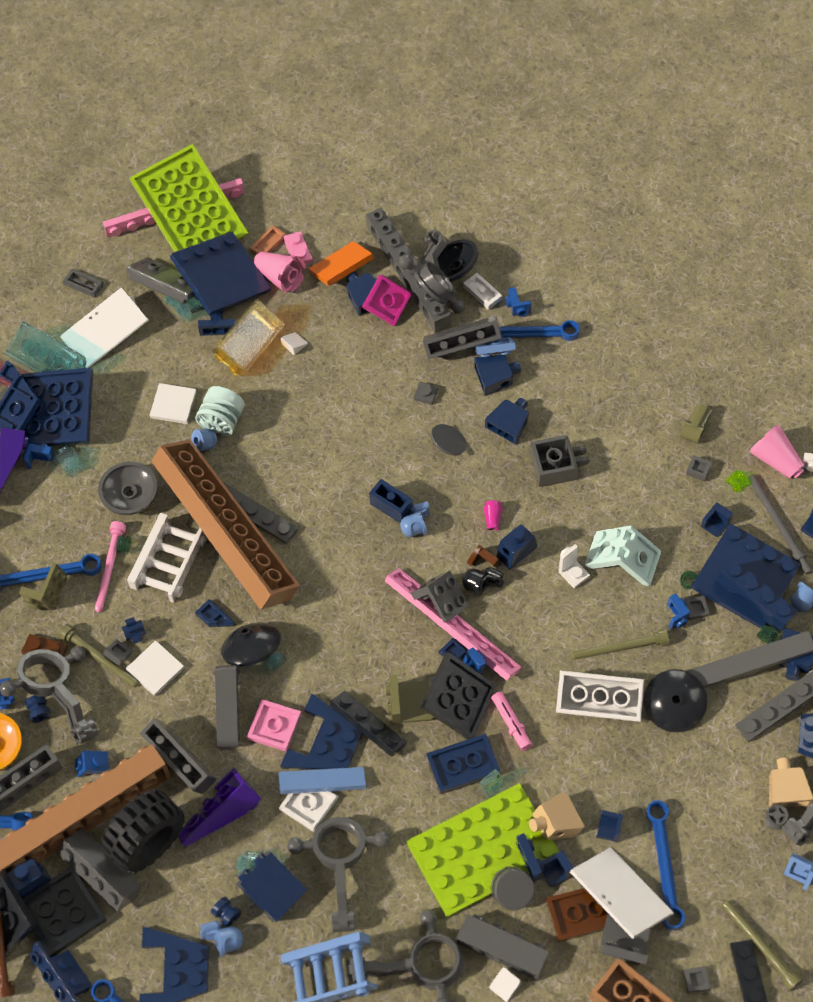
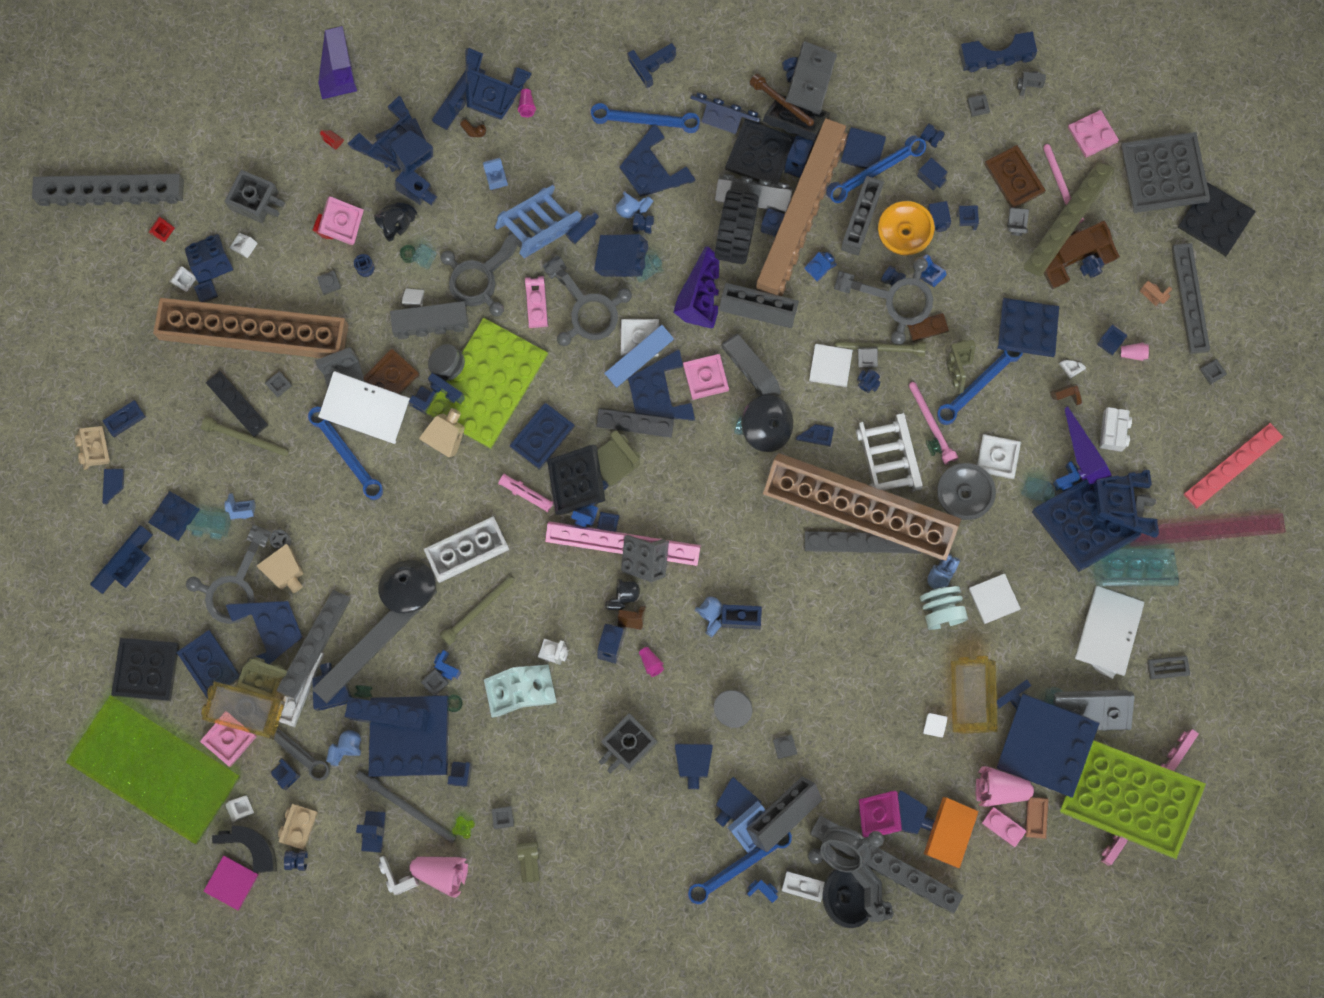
camera: 150 degrees right, 15 degrees up
(77, 507) = (999, 456): none -> white tile
(99, 825) = (772, 222): none -> dark blue brick
(286, 946) = (582, 228): none -> dark blue cylinder
(384, 900) = (536, 302): none -> bright pink plate
(492, 783) = (510, 432): clear light blue tile -> none
(609, 826) = (402, 455): dark blue panel -> none

